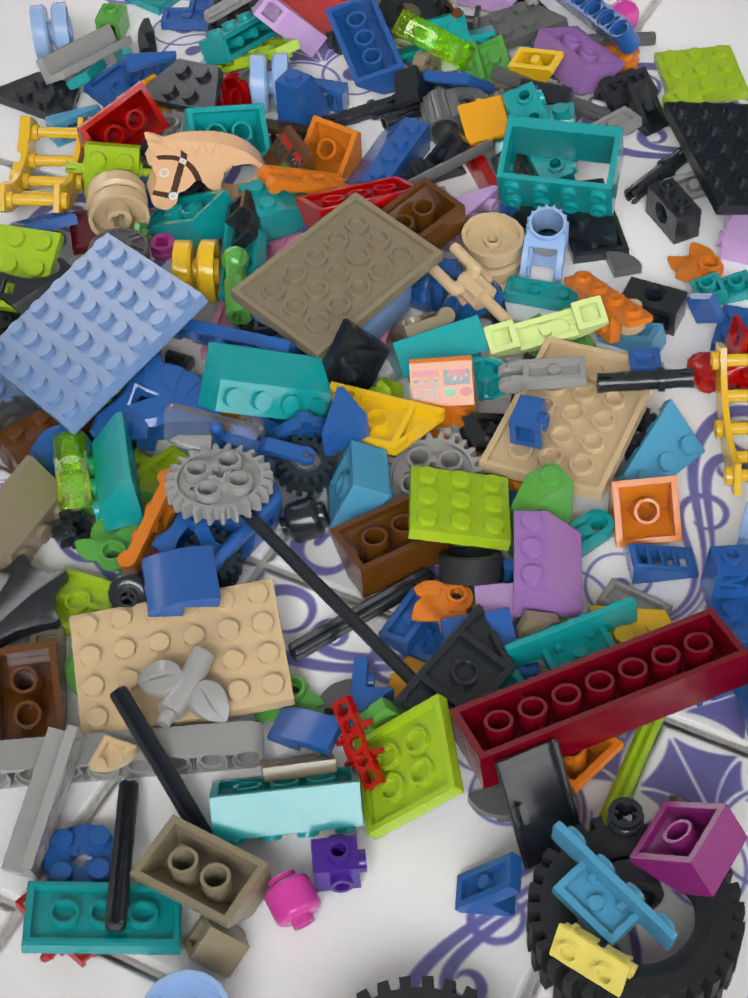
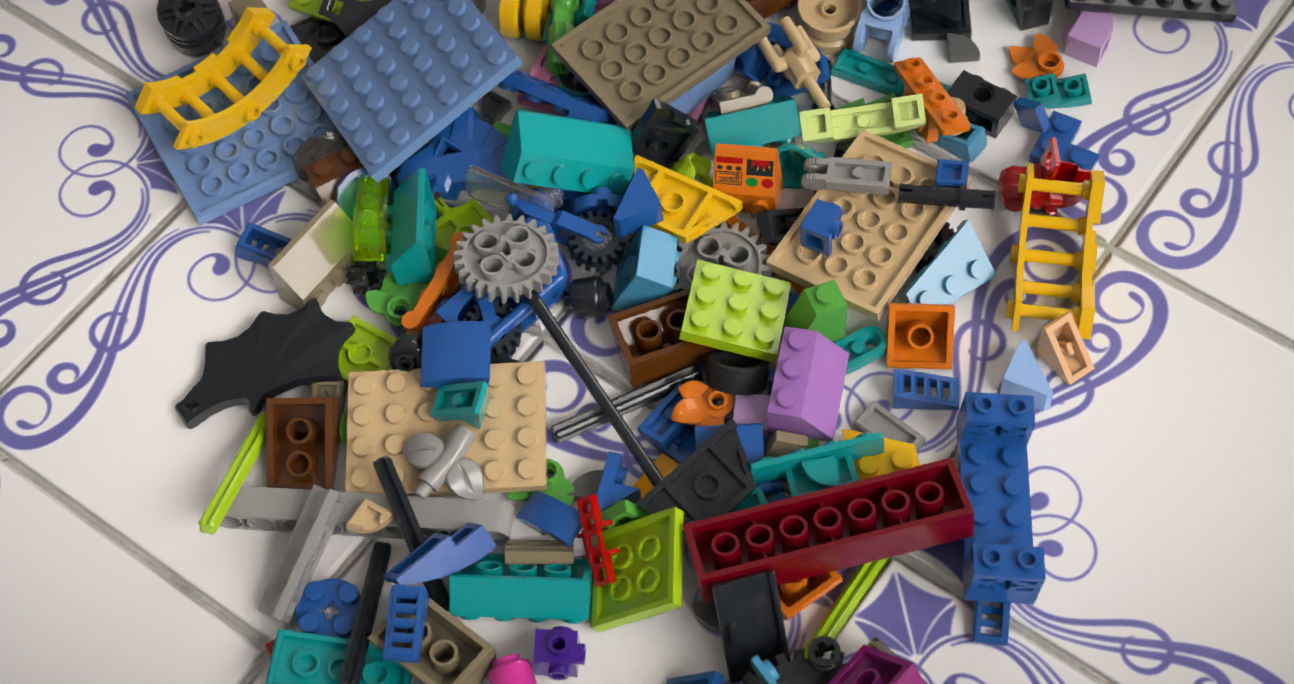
camera: 10 degrees right, 10 degrees up
(169, 826) = (418, 606): none -> blue slope
(194, 623) = (461, 402): none -> teal slope
(199, 777) = (442, 555): none -> slope
(578, 642) = (822, 471): none -> teal tile

